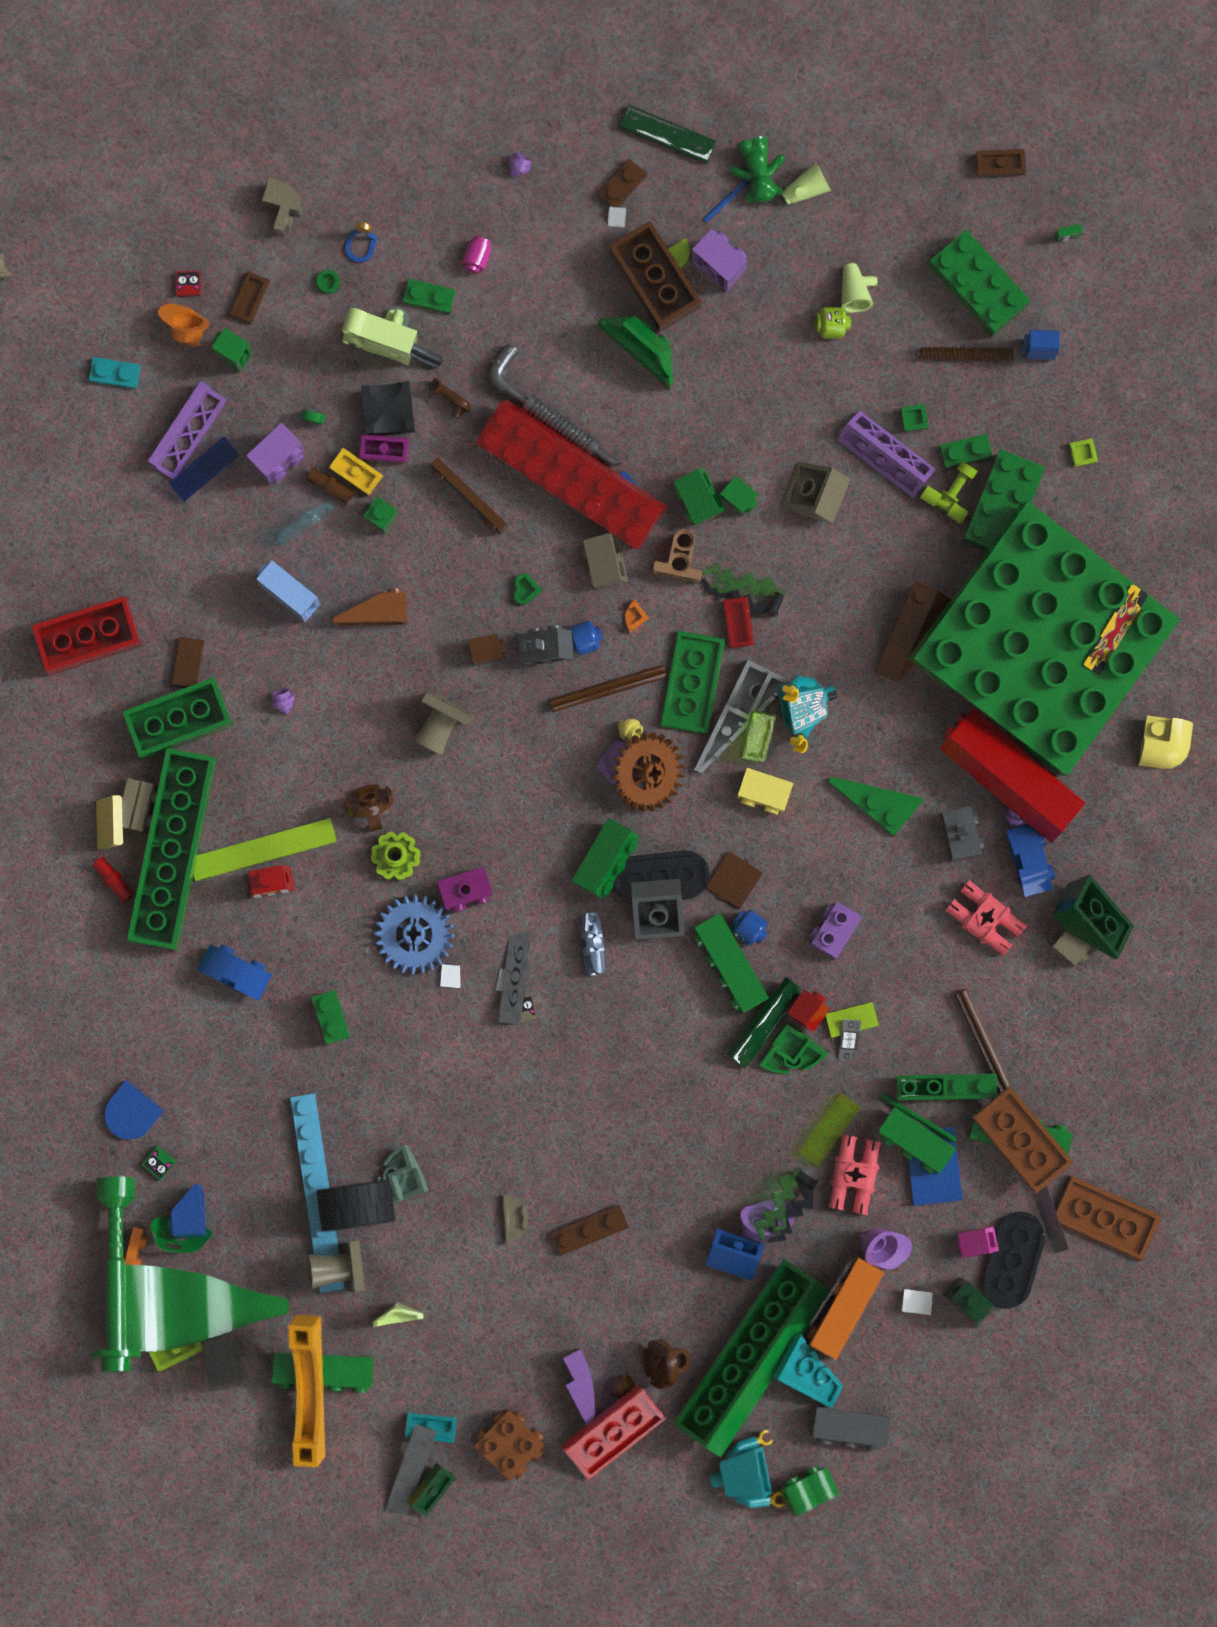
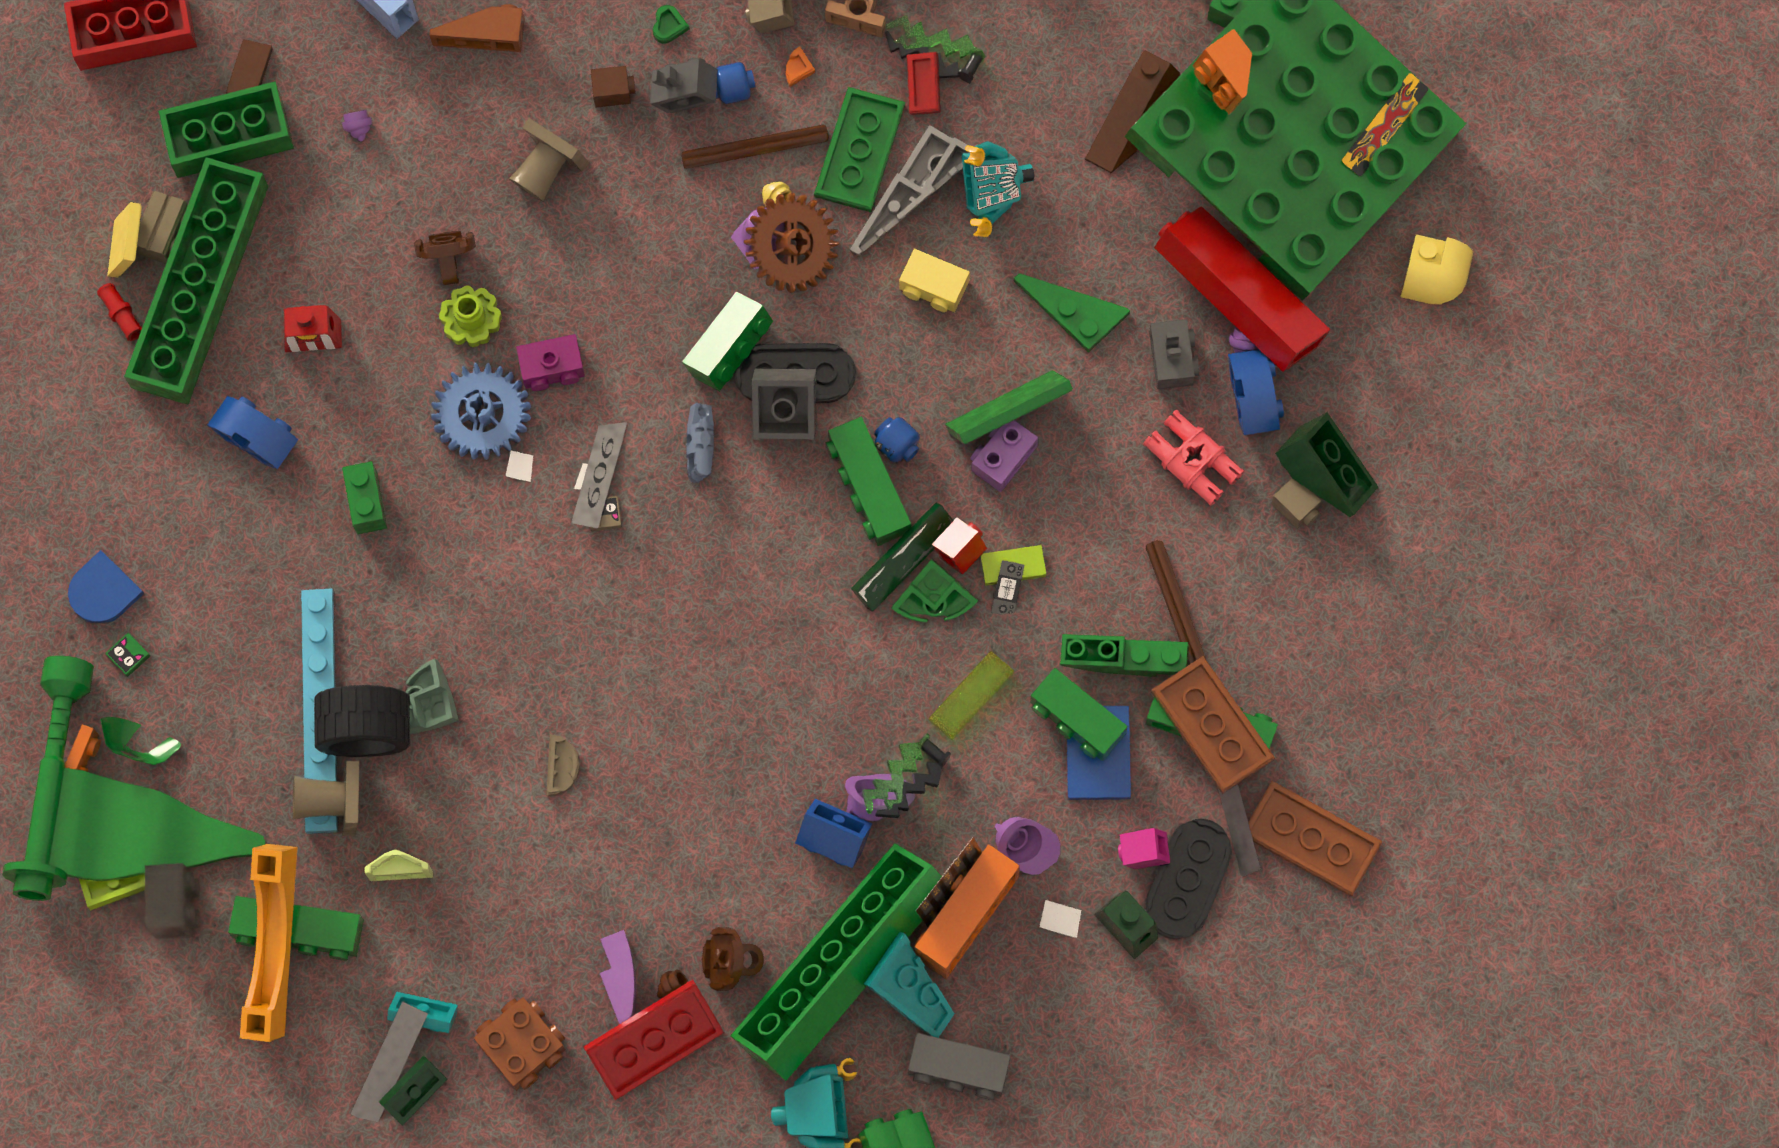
camera: 10 degrees right, 10 degrees down
(189, 1215) = (155, 718): blue slope -> none
(264, 849) = (327, 291): lime tile -> none
(590, 1230) = (655, 789): reddish brown plate -> none
(734, 880) = (885, 385): reddish brown piece -> none
(757, 736) = (932, 215): clear neon green tile -> none
(836, 893) = (1009, 407): none -> green tile
(845, 1163) = (980, 754): coral pin -> none
(918, 1118) = (1116, 712): green axle -> none
(989, 611) = (1225, 70): none -> orange slope

